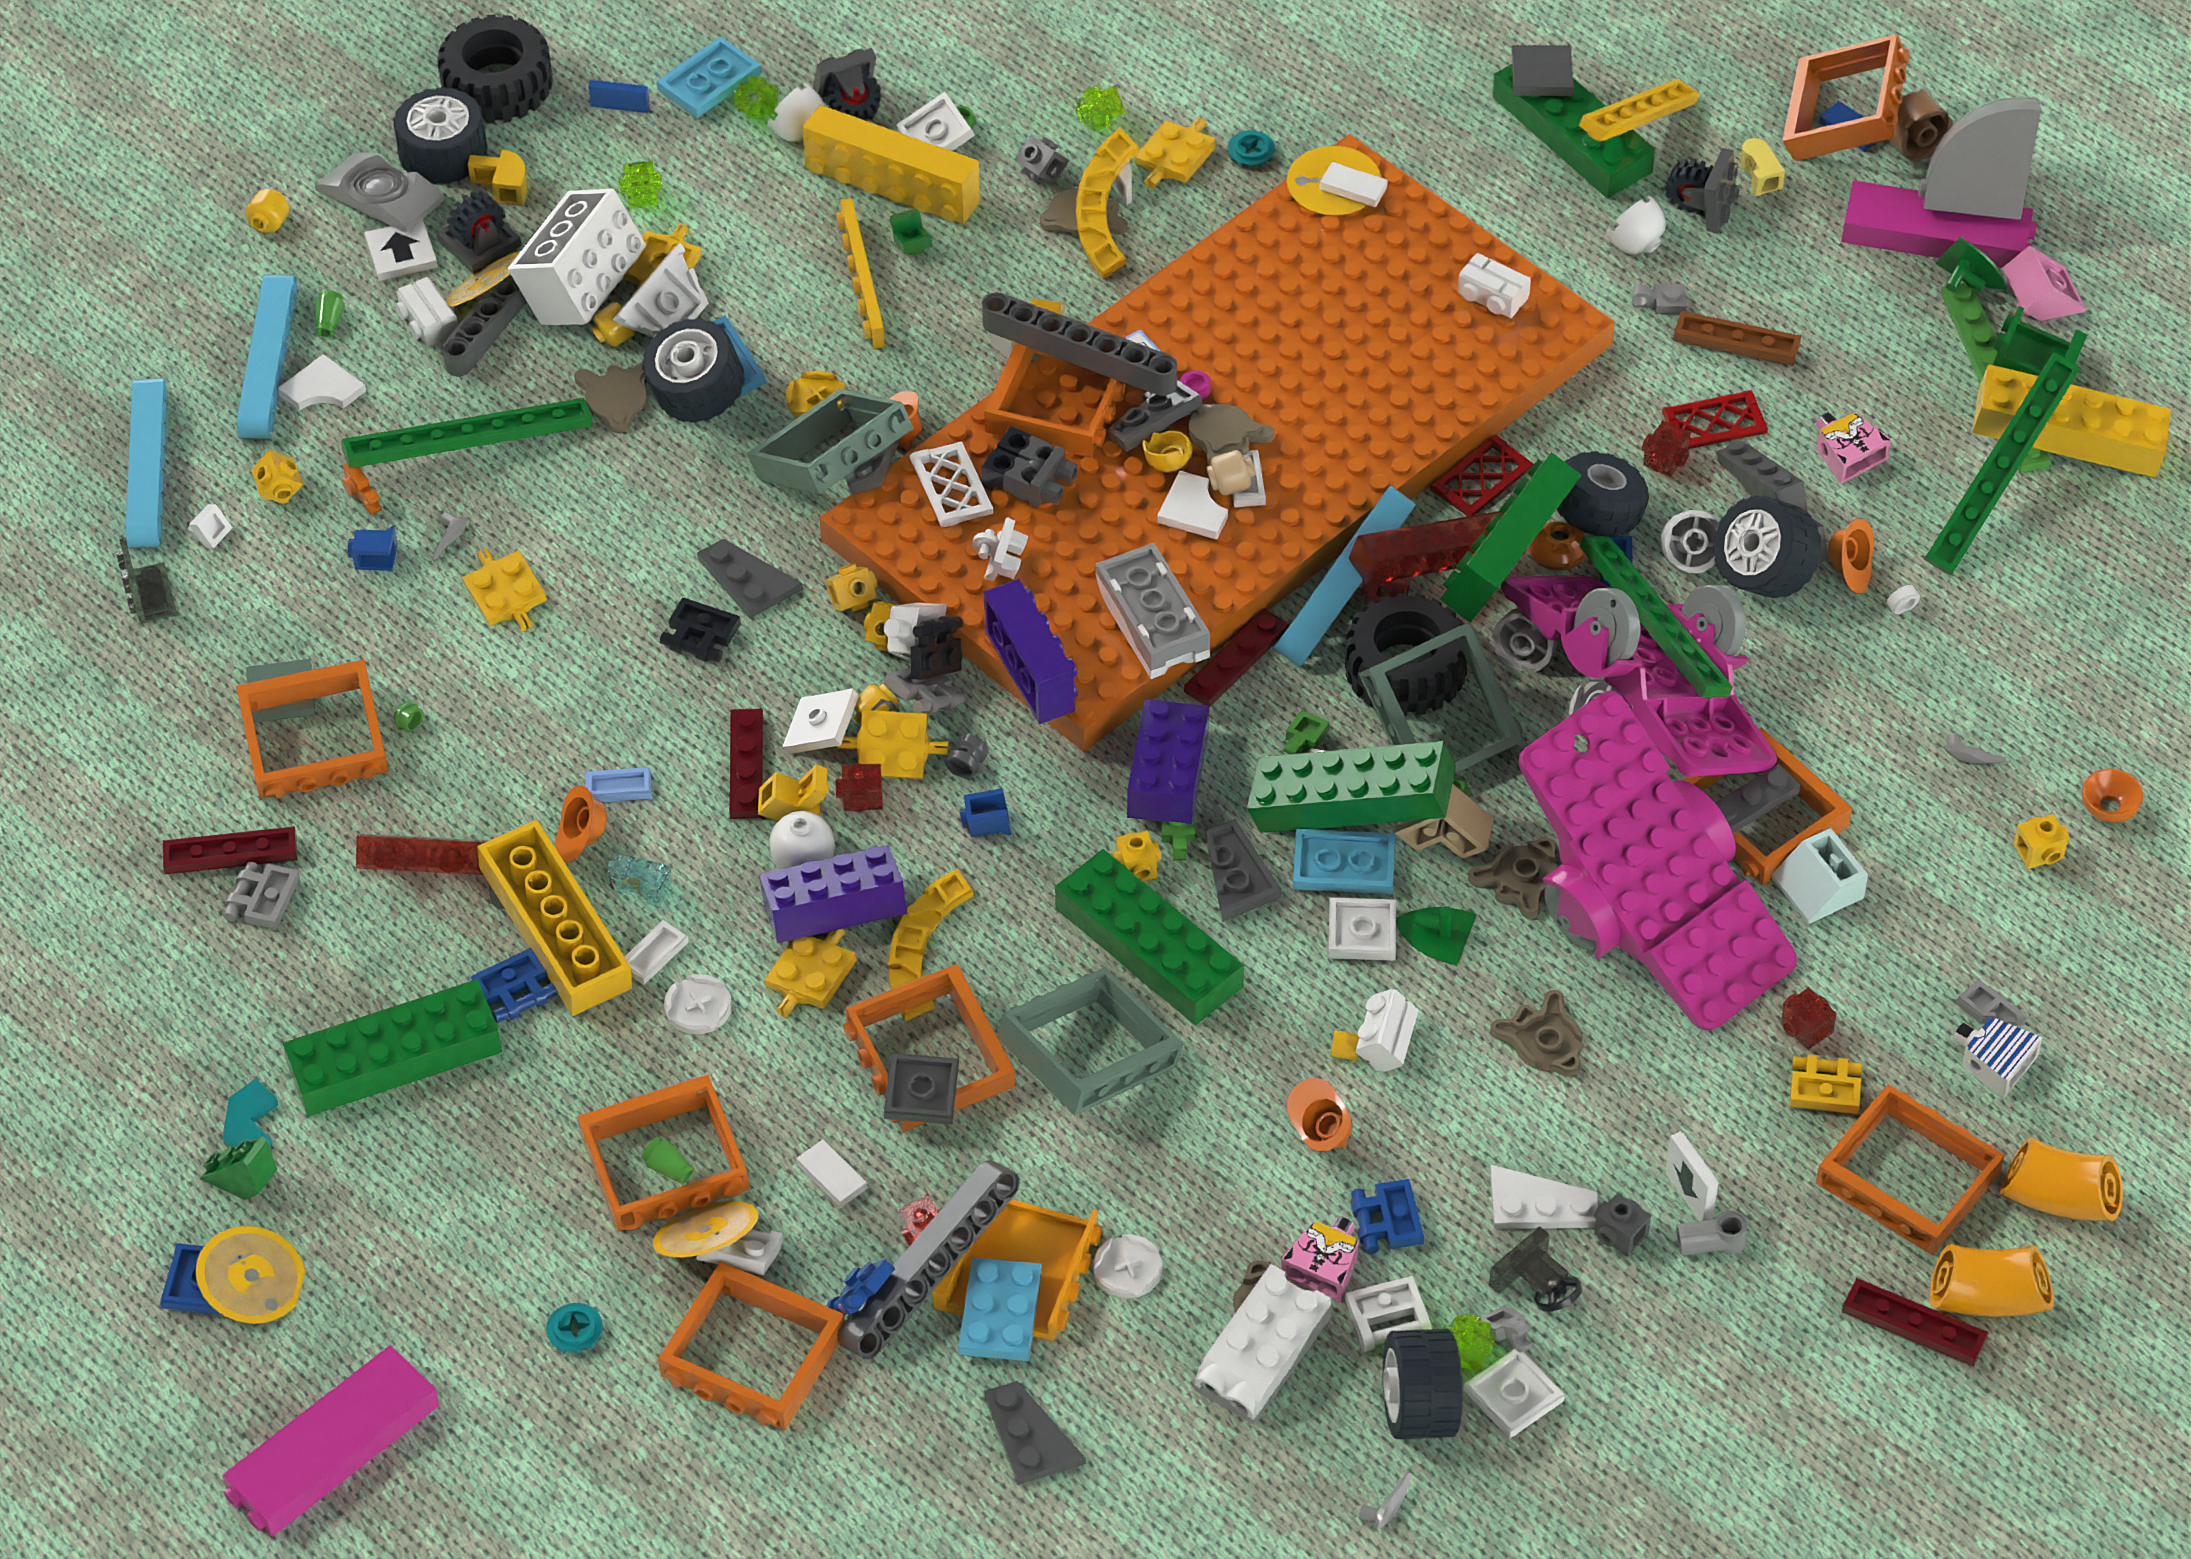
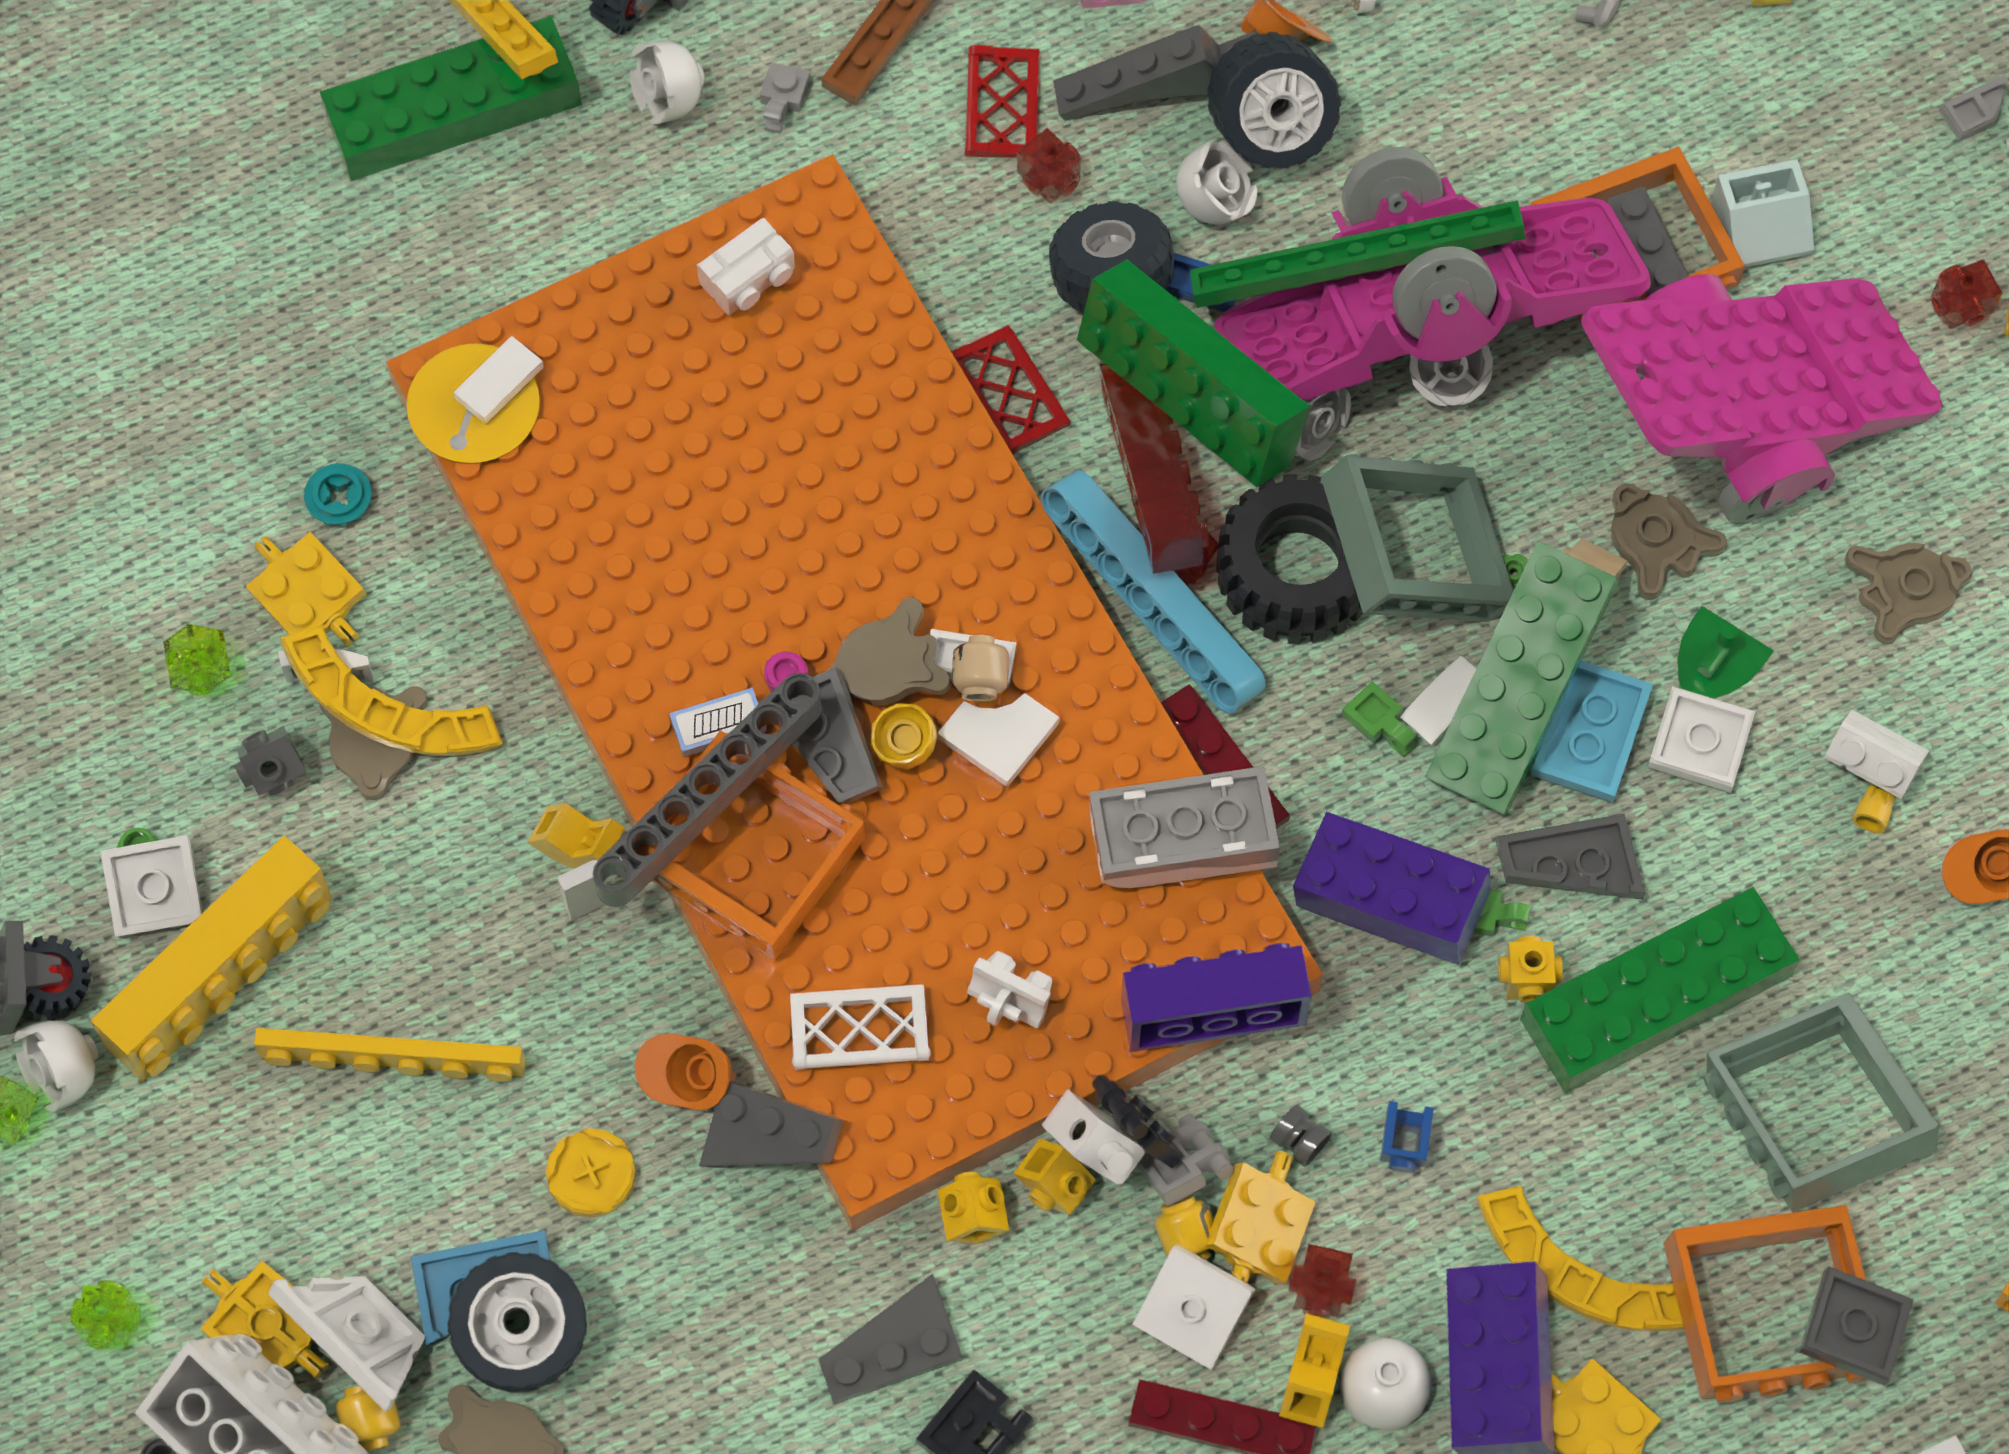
camera: 75 degrees left, 15 degrees up
(884, 424) = (666, 1201): sand green window -> none
(909, 233) = (341, 970): green bracket -> none
(1028, 468) = (876, 920): dark grey hips -> none
(1542, 70) = (374, 97): dark grey tile -> none

